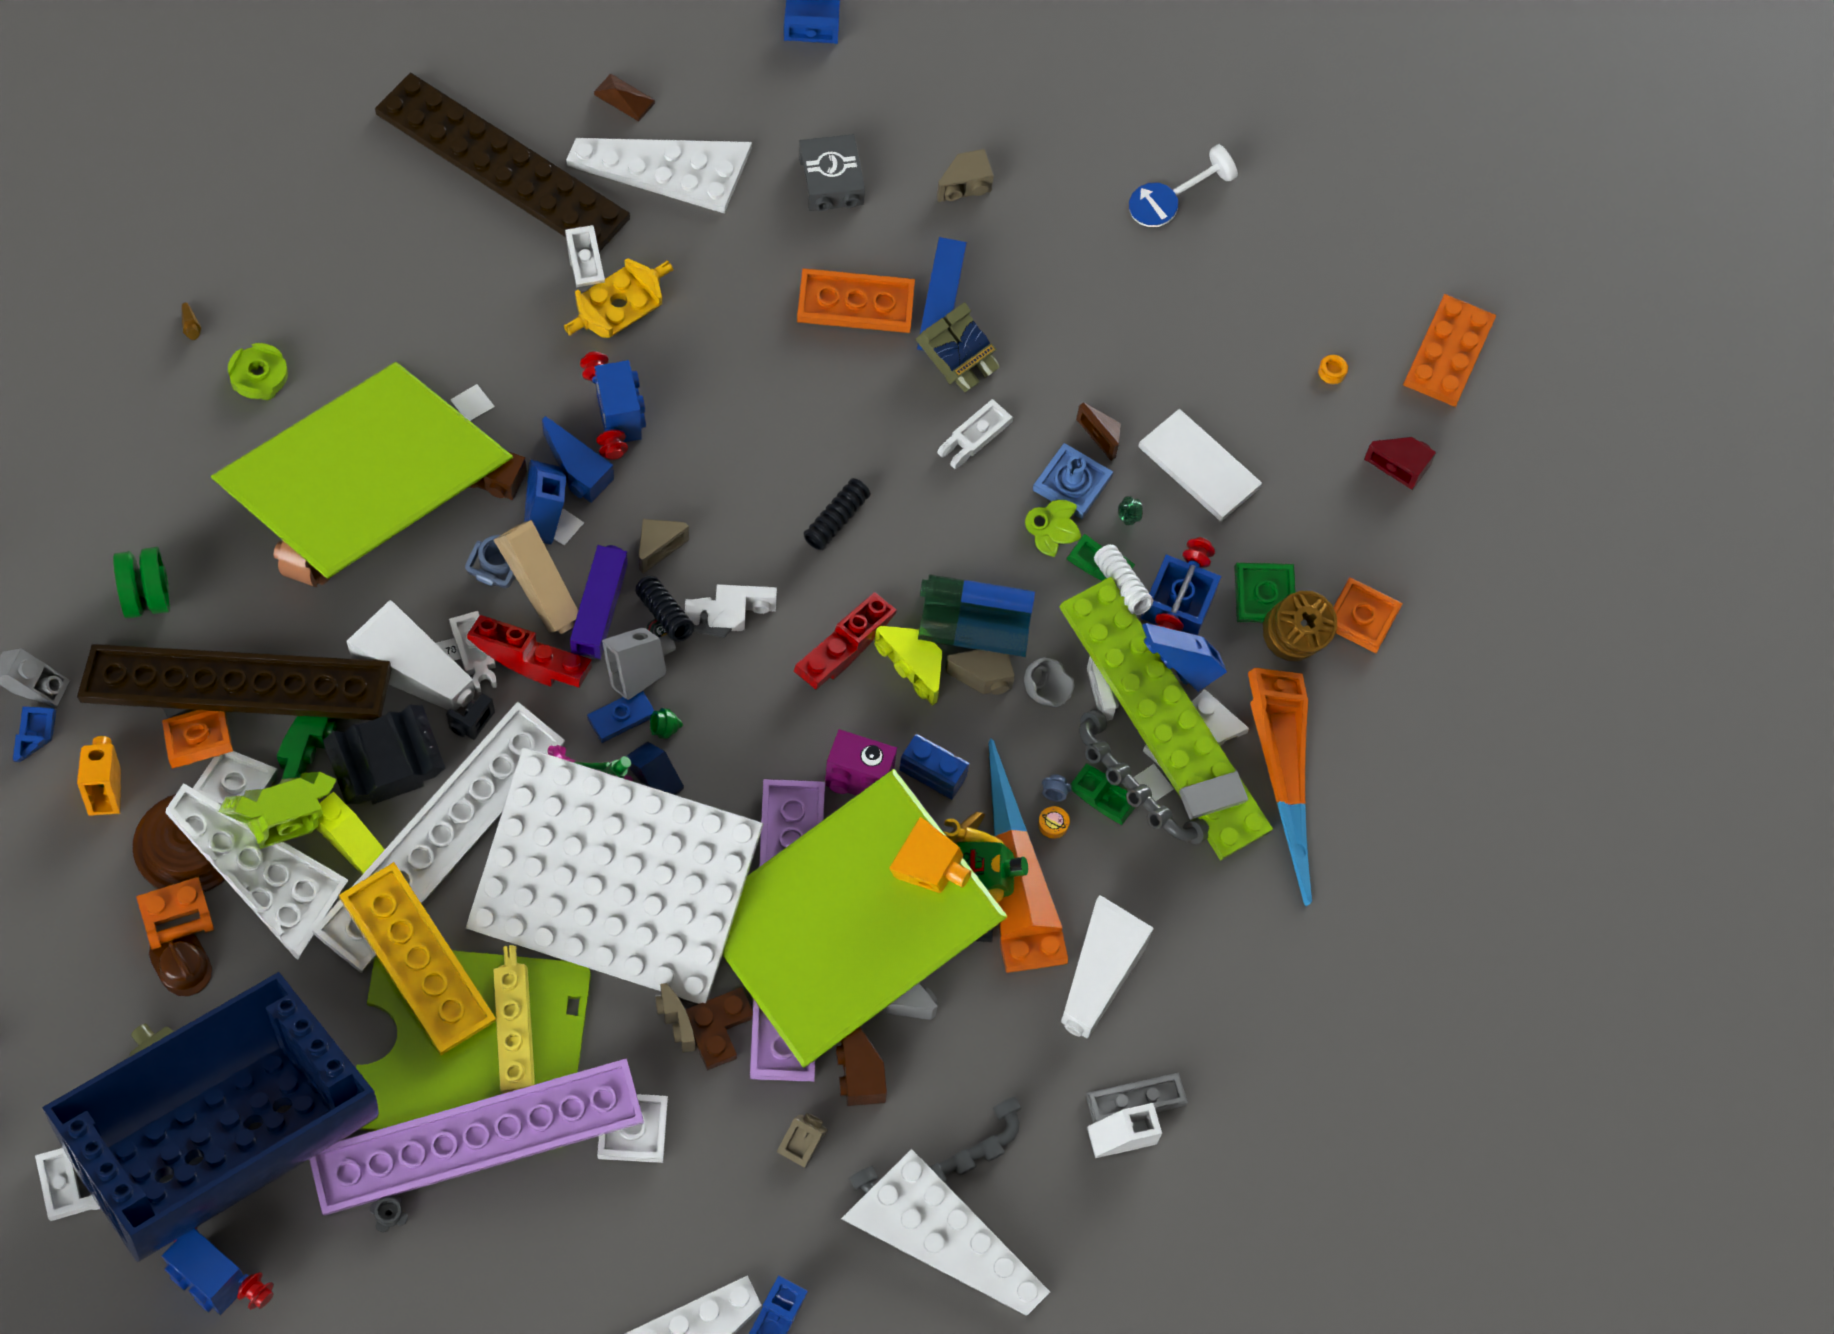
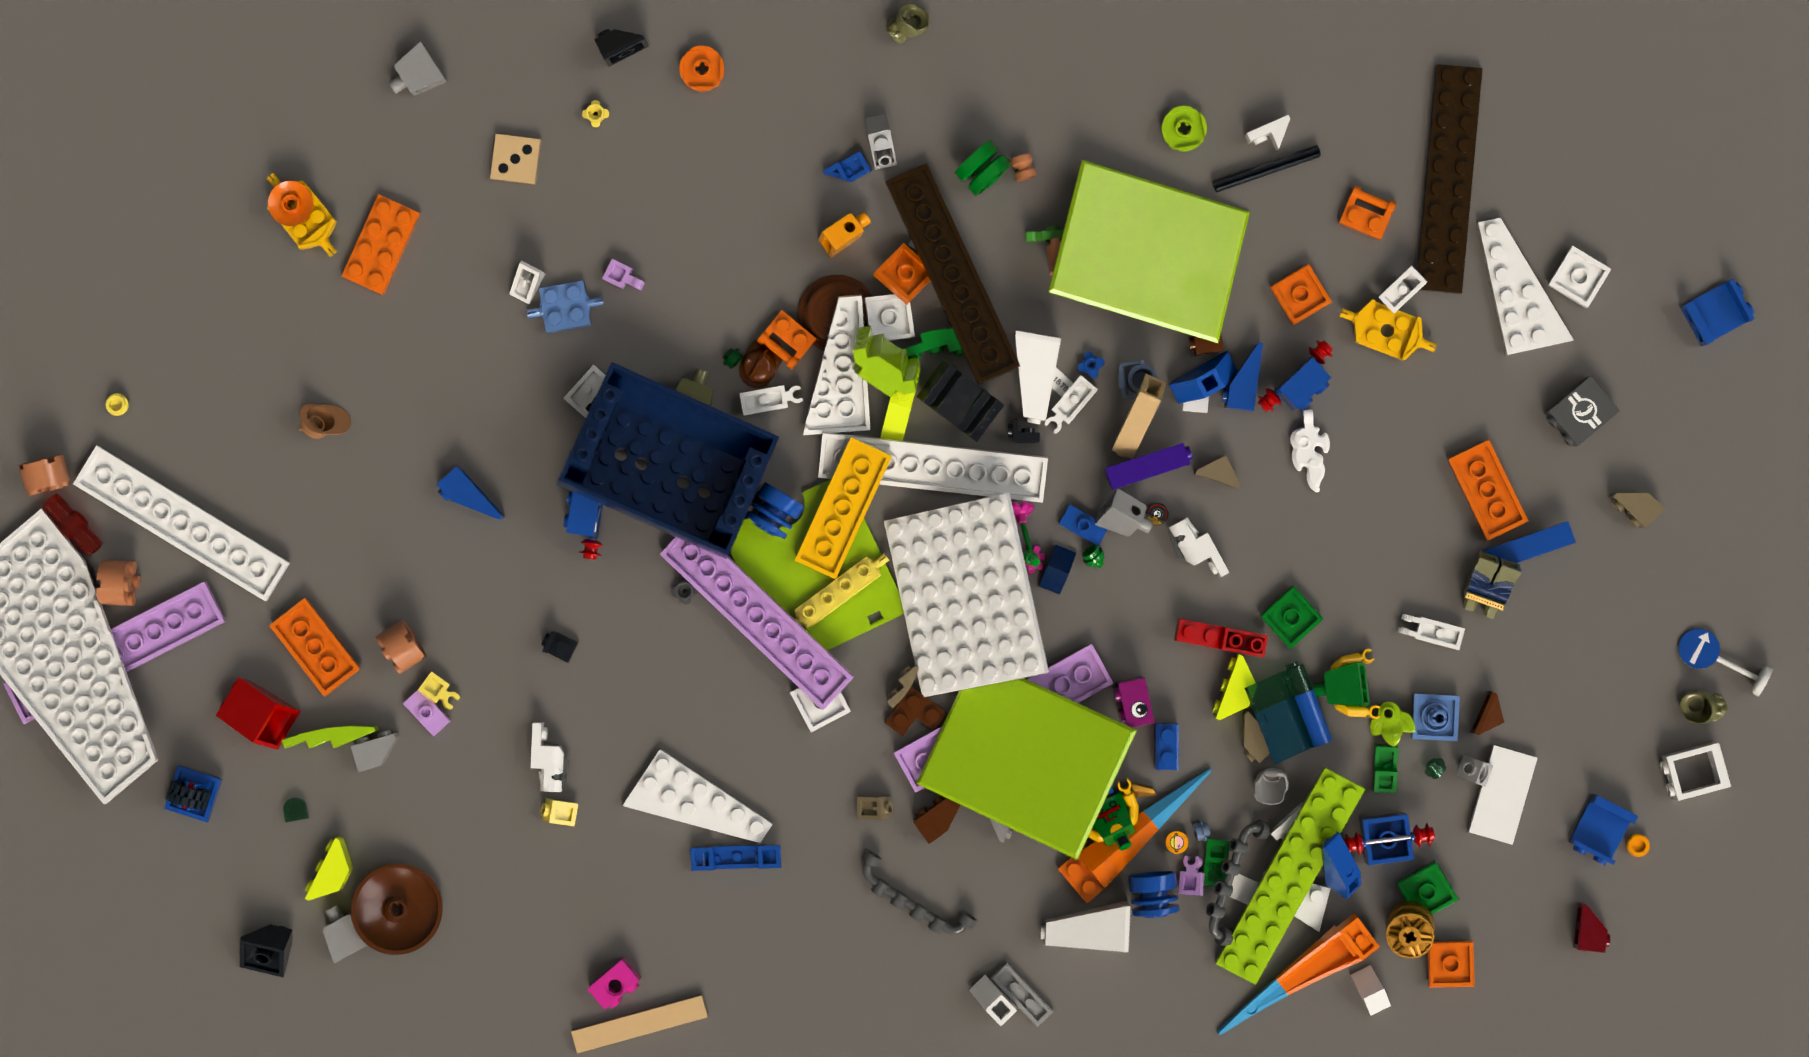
camera: 70 degrees right, 25 degrees up
(150, 988) = (732, 357): none -> dark green plate
(176, 548) = (1023, 168): none -> nougat wheel
(190, 324) = (1192, 58): pearl gold bar -> none
(229, 972) = (767, 399): none -> white plate
(266, 572) = (1044, 236): none -> bright green plate
(326, 288) = (1274, 129): none -> white slope
(361, 319) = (1266, 168): none -> black axle
(365, 1032) = (774, 510): none -> blue wheel
(445, 613) = (1097, 363): none -> blue plate
(472, 402) = (1250, 282): white sticker -> none
(484, 261) = (1363, 219): none -> orange plate
(520, 359) = (1300, 294): none -> orange plate
(521, 652) = (1085, 442): red slope -> none
(624, 97) = (1558, 226): reddish brown slope -> none
(664, 608) = (1170, 509): black piece -> none
(684, 444) = (1303, 454): none -> white piece
(689, 103) = (1579, 277): none -> white plate
(836, 514) = (1312, 576): black piece -> none
(869, 560) = (1291, 617): none -> green plate
(929, 859) = (1084, 792): light orange torso -> none
(932, 1224) = (866, 912): white wing -> none
(984, 542) = (1347, 686): none -> green torso
(1100, 871) = (1153, 892): none -> blue wheel
(1109, 827) = (1191, 881): none -> lavender plate
(1115, 566) = (1371, 796): white piece -> none
(1156, 471) = (1474, 770): none -> light grey brick
(1213, 795) = (1250, 937): light grey tile -> none
(1217, 229) = (1702, 707): none -> olive hair
(1289, 250) = (1717, 764): none -> white window
(1294, 390) = (1601, 829): none -> blue panel
(1347, 711) = (1370, 990): none -> white slope
(1449, 350) = (1704, 917): orange plate -> none

